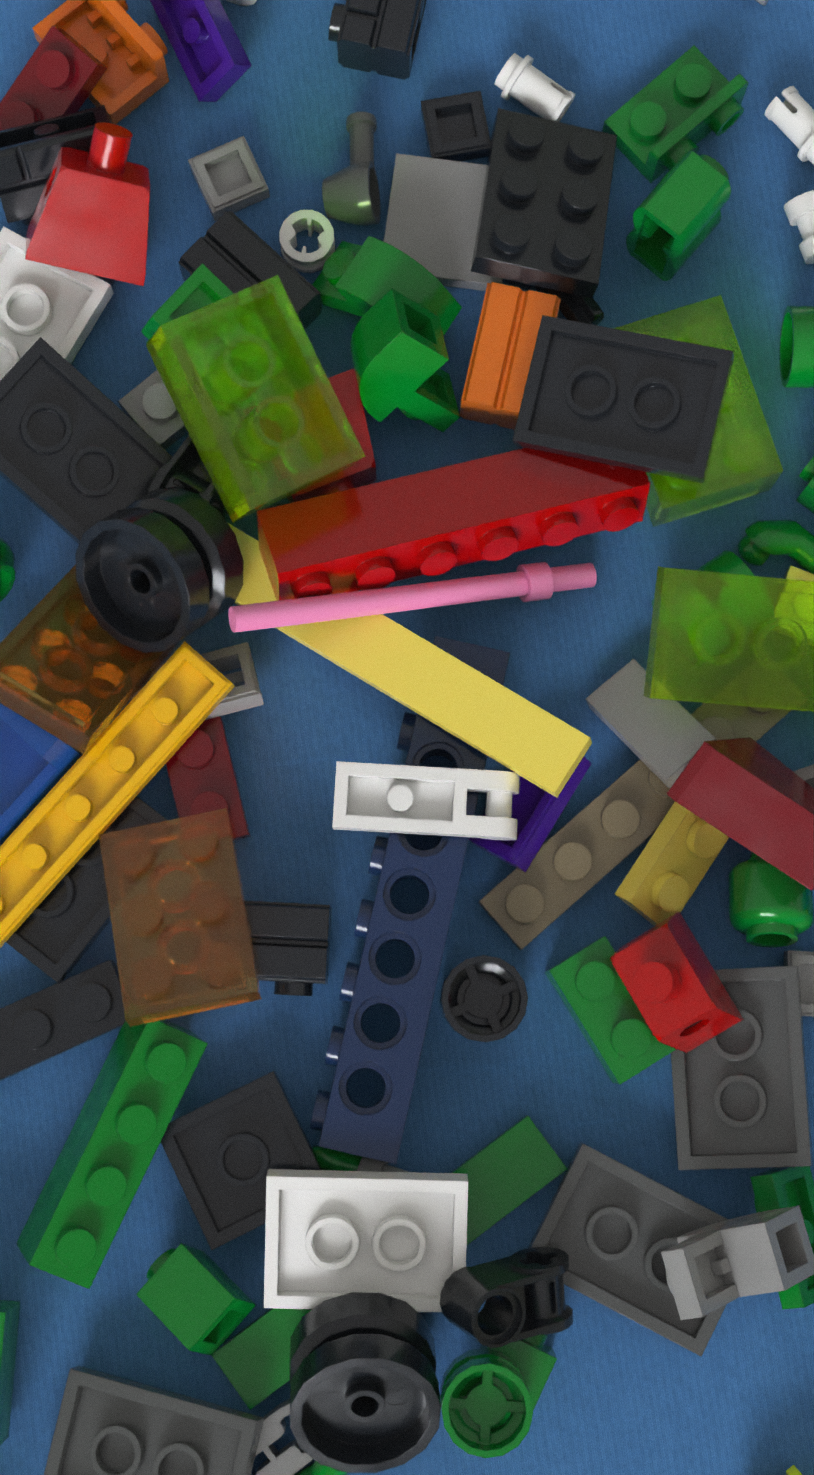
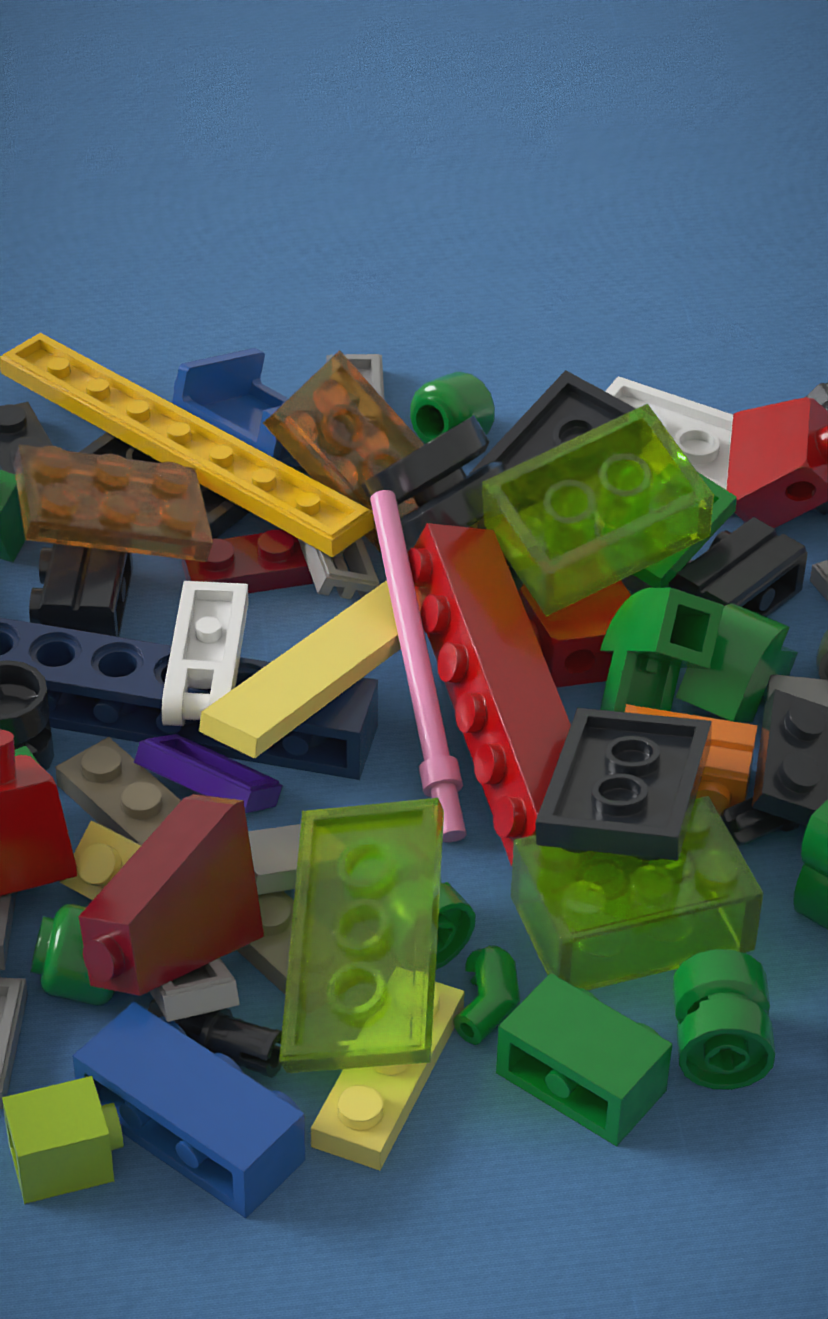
camera: 90 degrees right, 40 degrees down
(310, 221) = (805, 627): white bush -> none

